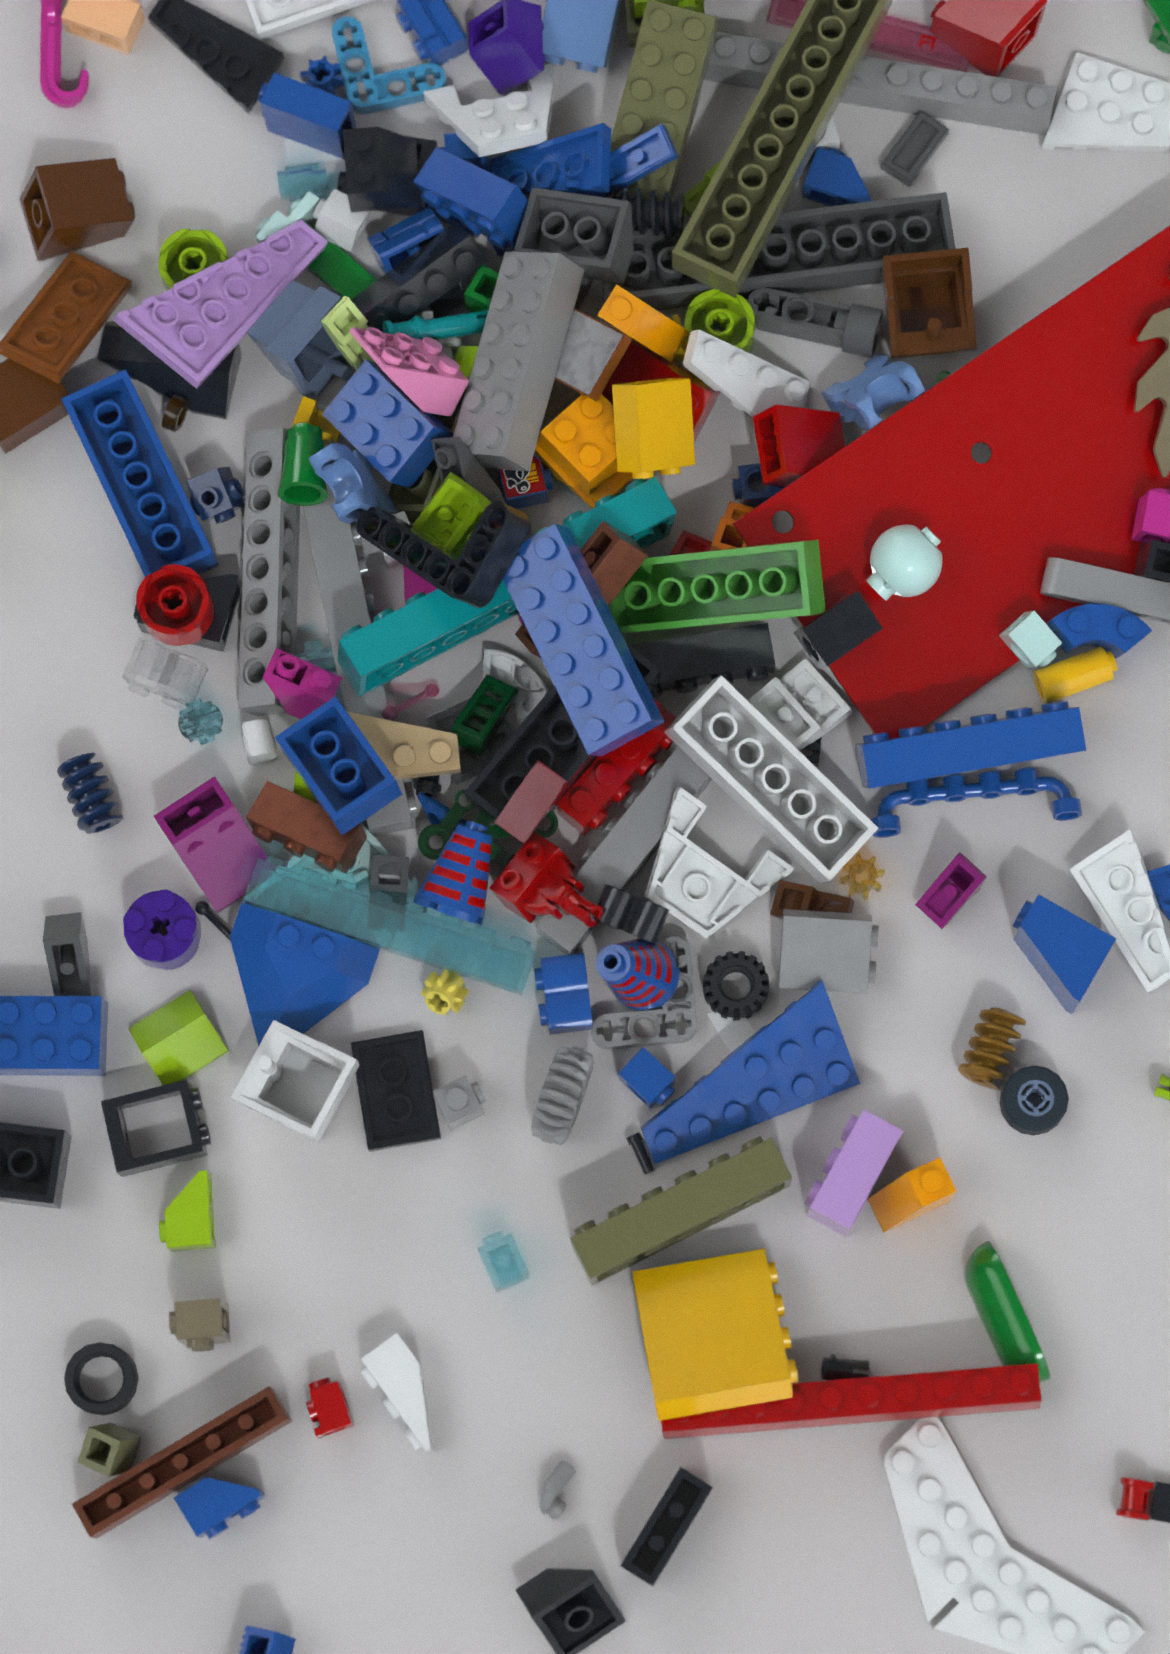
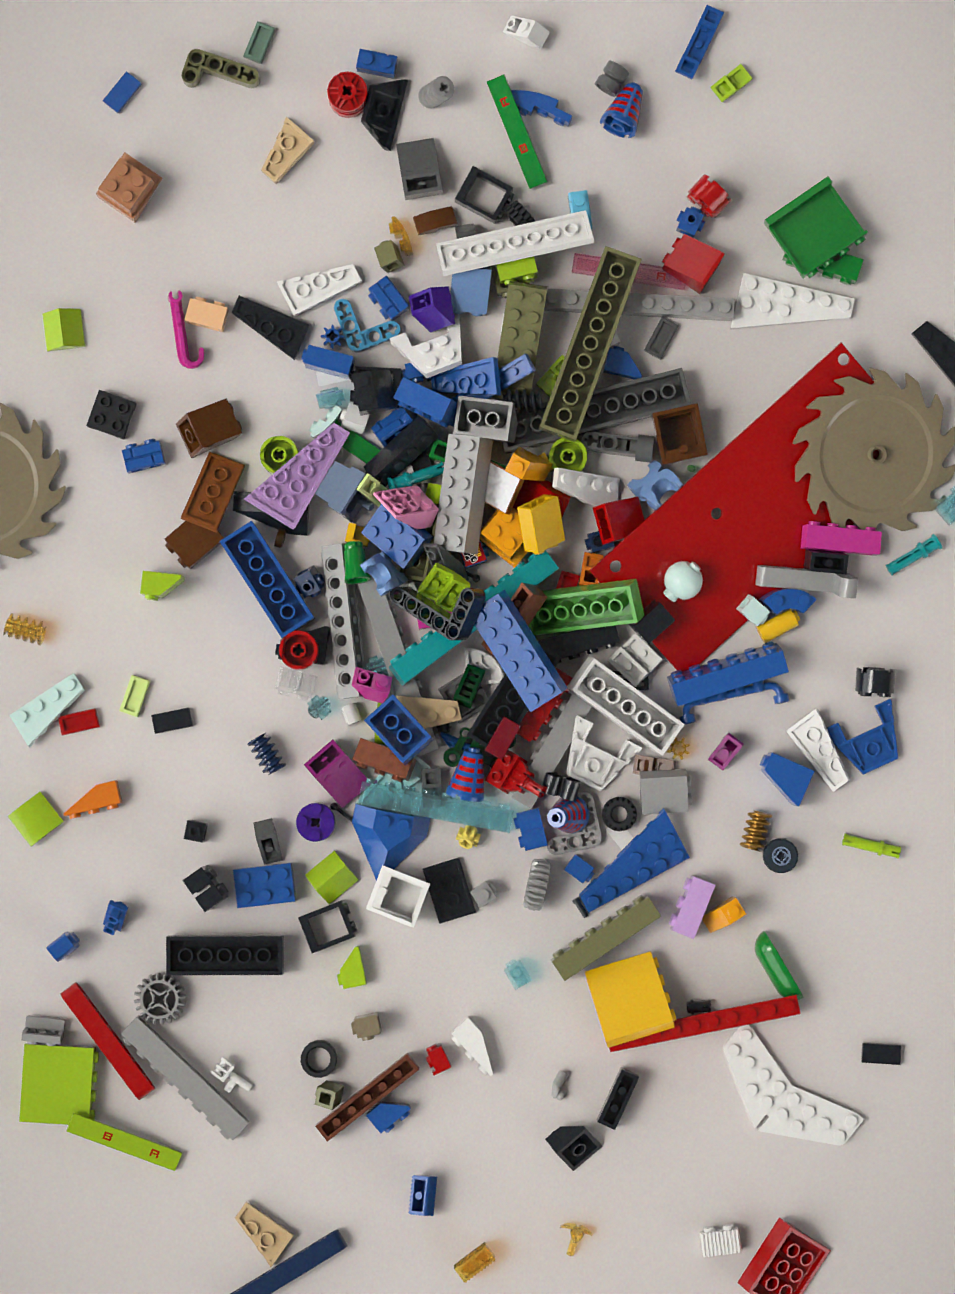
camera: 10 degrees left, 10 degrees up
(391, 712) = (420, 692): clear pink hinge -> none
(1134, 1498) = (852, 1053): red bush -> none

